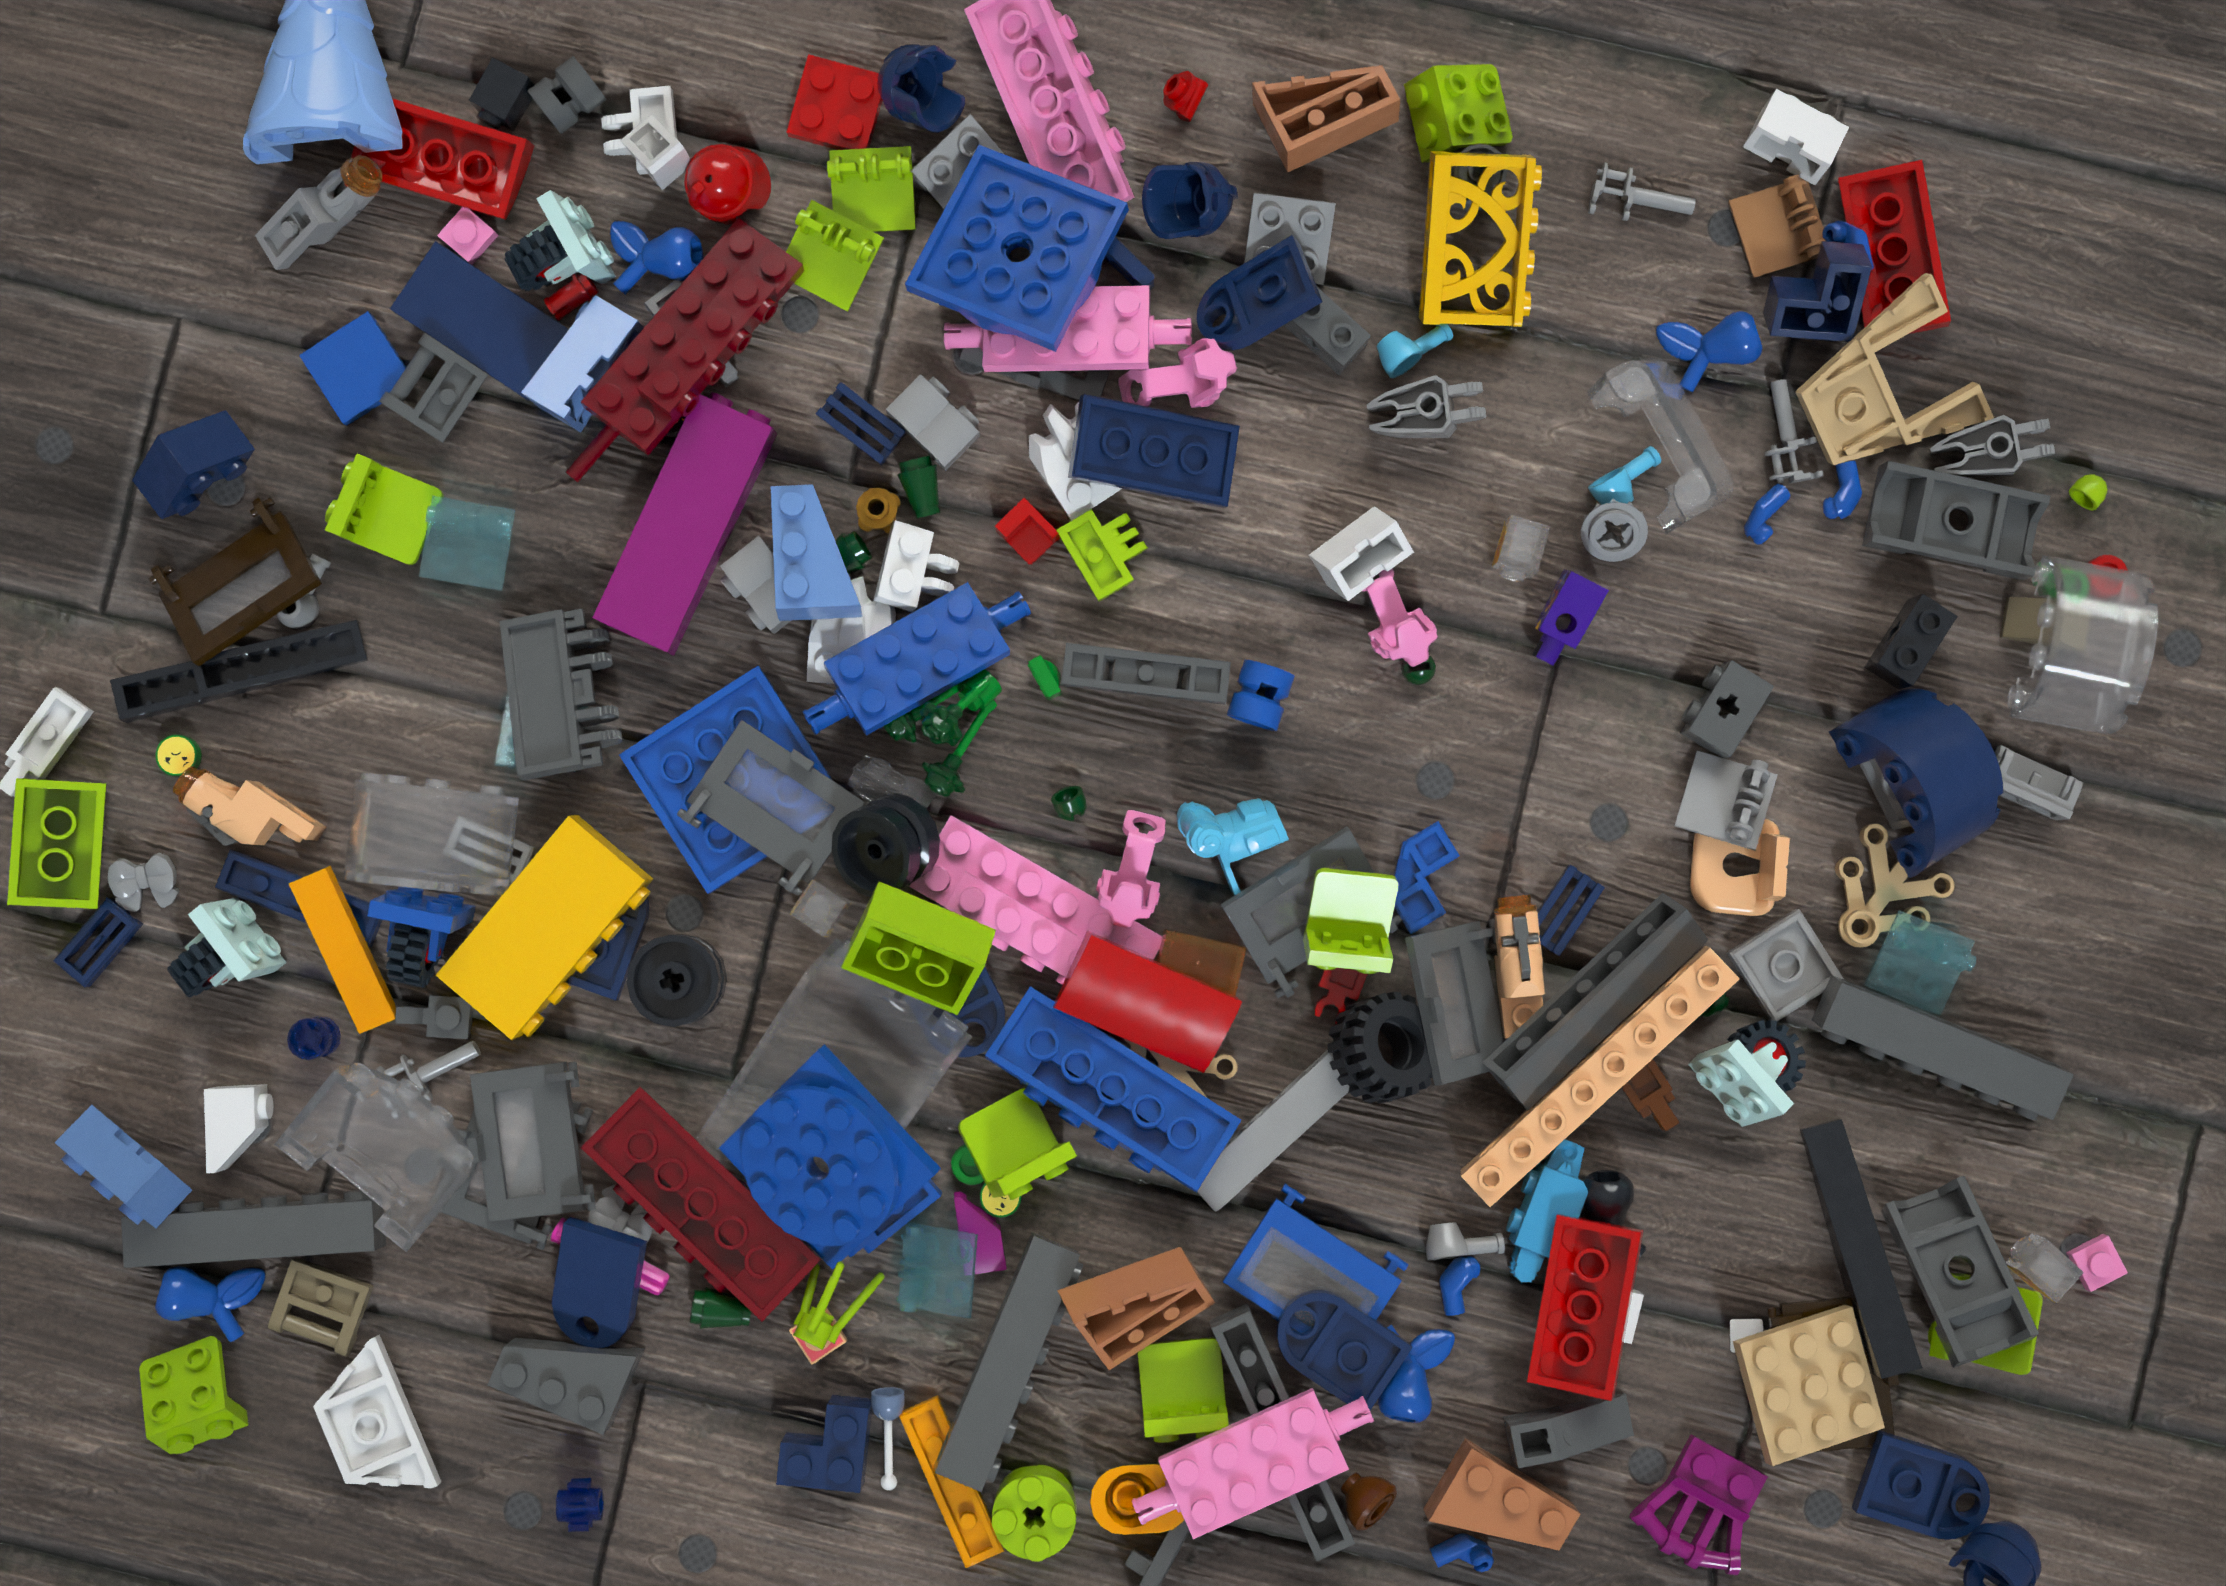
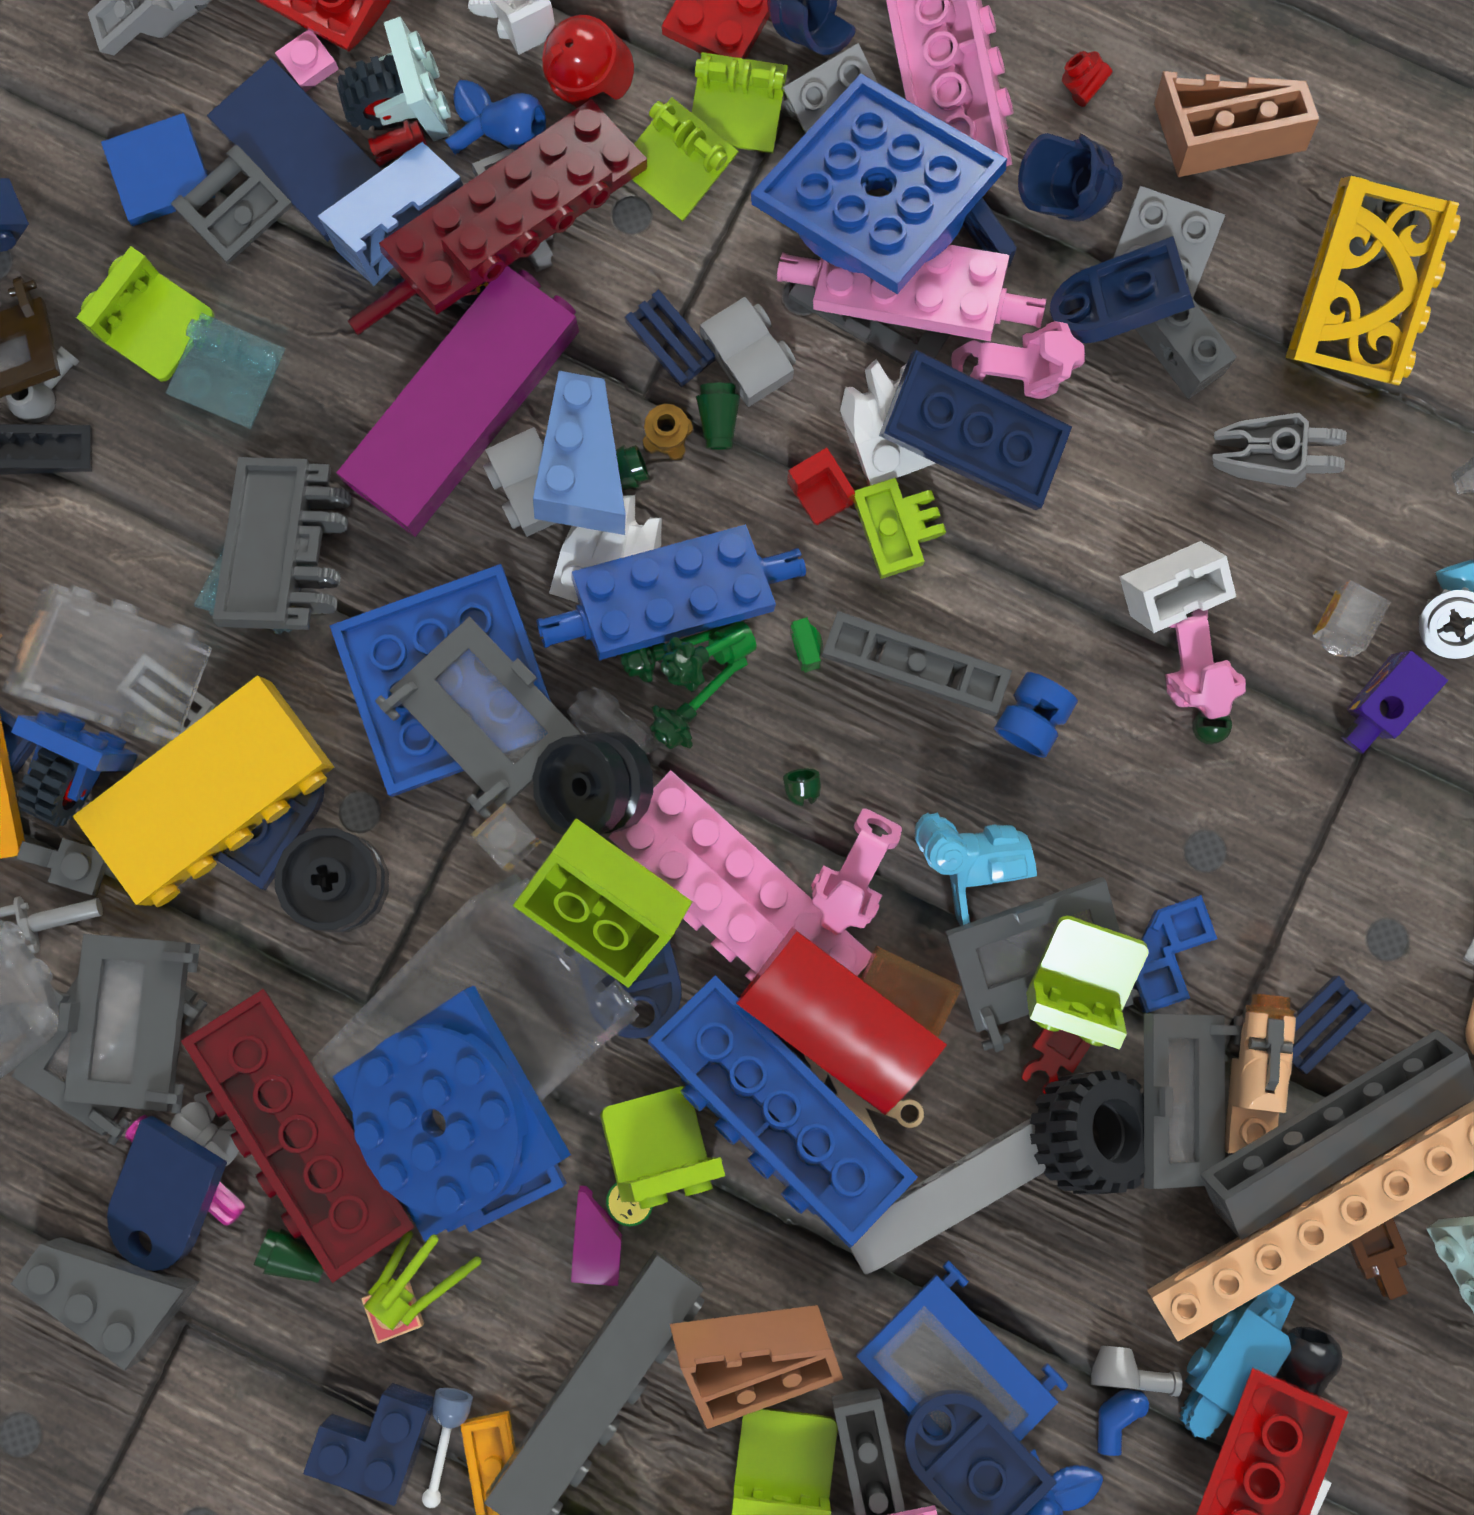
camera: 15 degrees right, 5 degrees down
(579, 1504) = (81, 1444): clear blue gear -> none
(905, 565) = (683, 492): white hinge -> none
(937, 1270) = (541, 1269): clear light blue hinge -> none
(965, 1167) = (598, 1160): green tile -> none
(1401, 353) = (1261, 388): medium azure bar -> none
(1457, 108) = (1370, 143): lime bracket -> none

